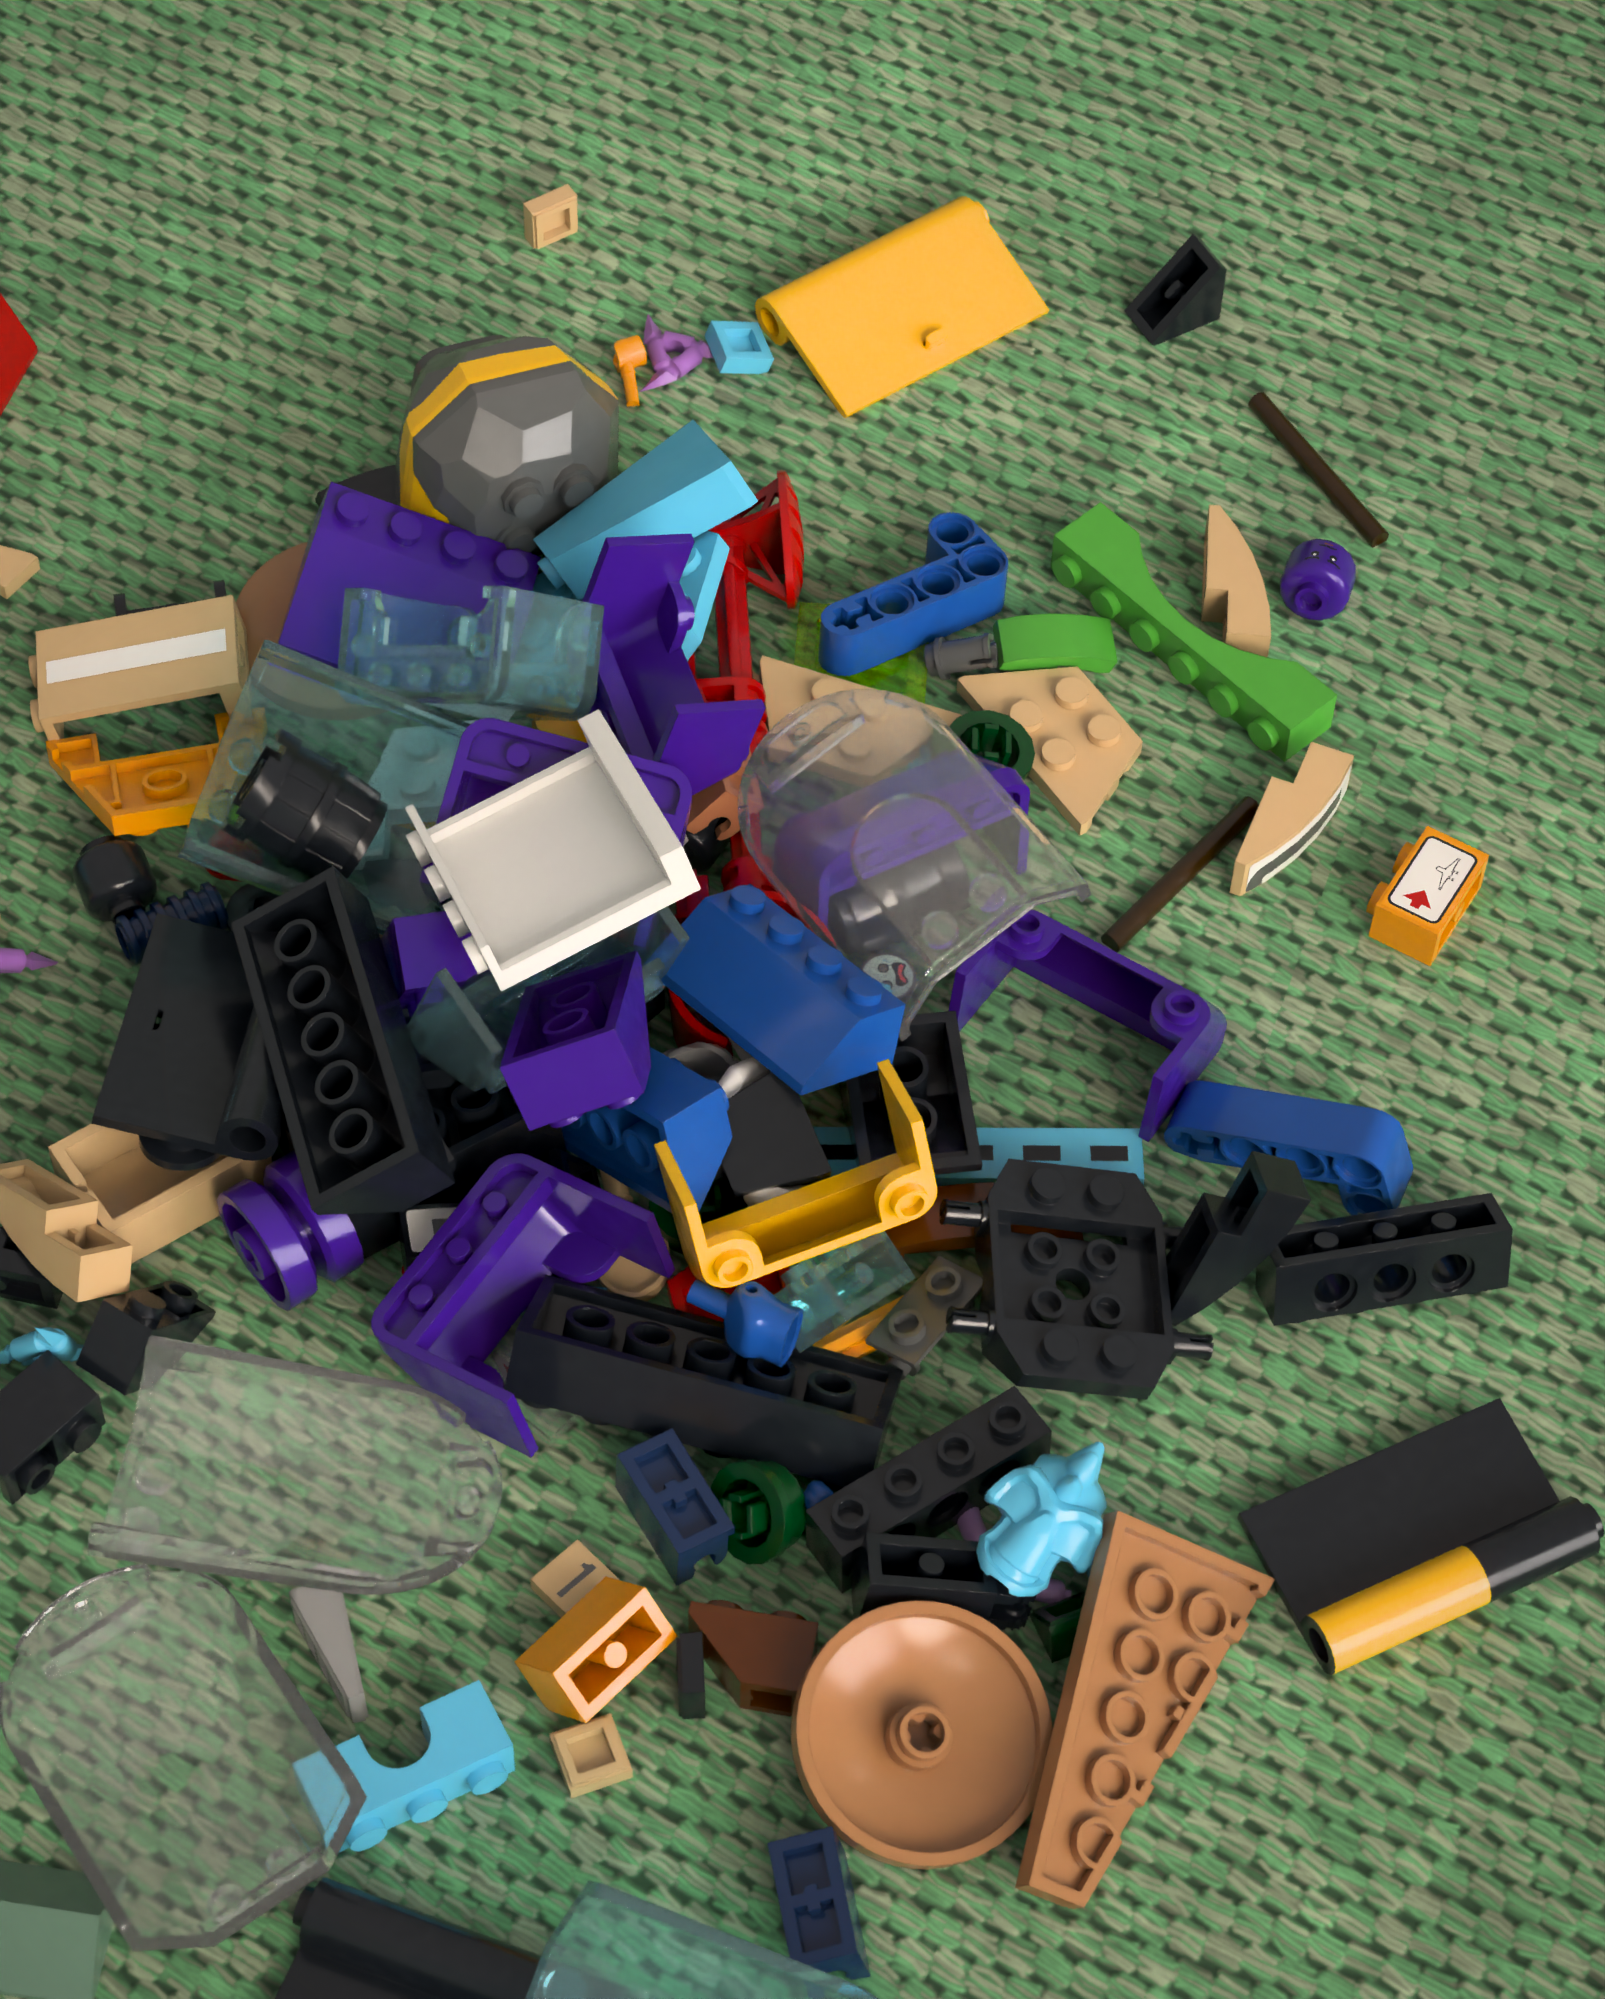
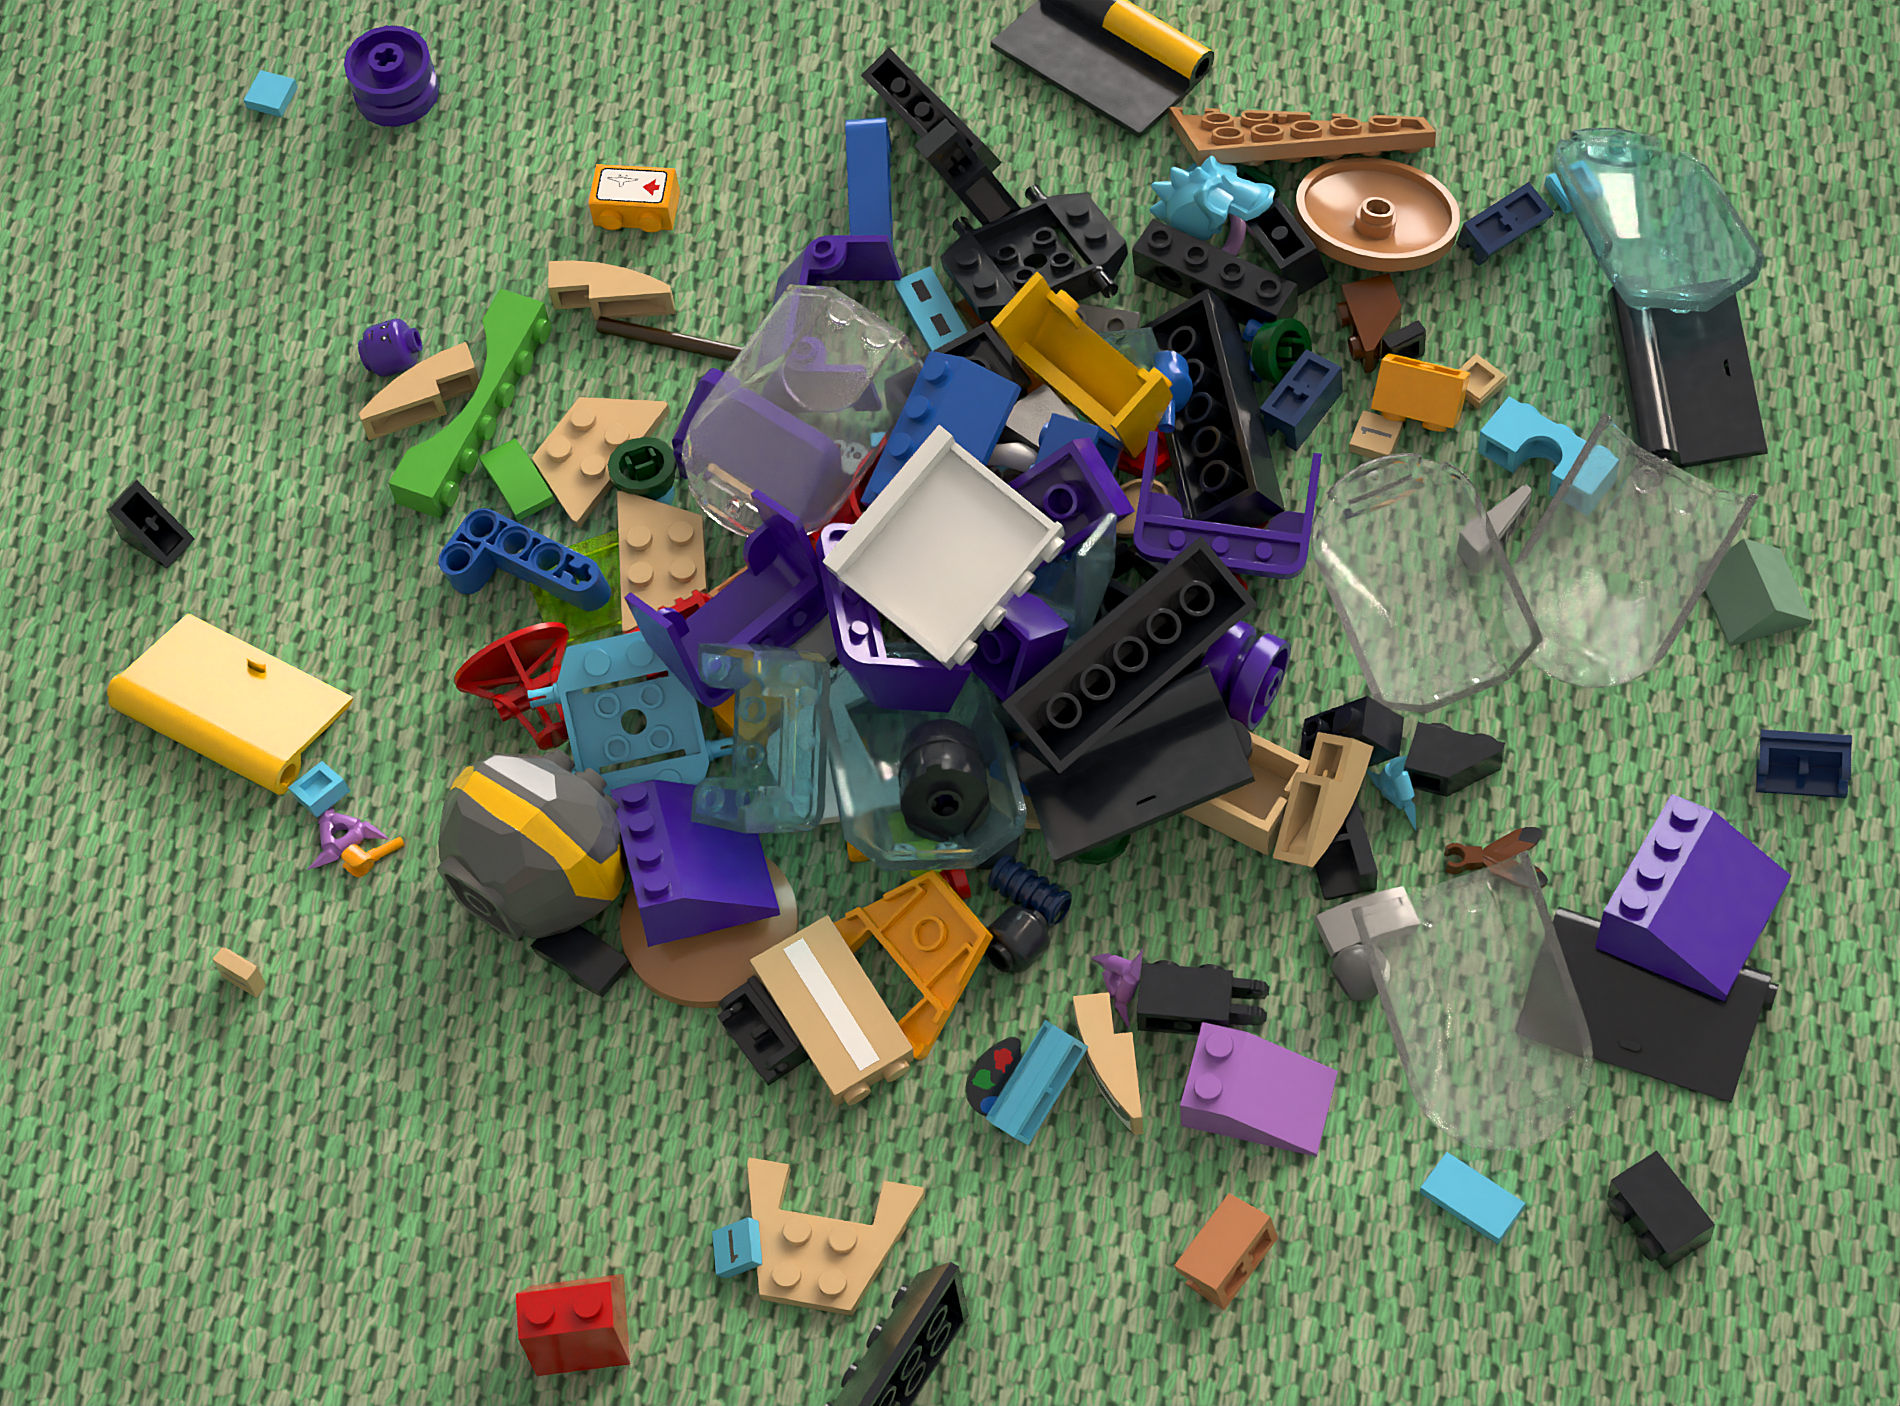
camera: 105 degrees left, 5 degrees up
(673, 489) = (555, 705): medium azure slope -> none
(960, 655) = (556, 521): dark grey pin -> none
(1318, 469) = (276, 395): dark brown bar -> none

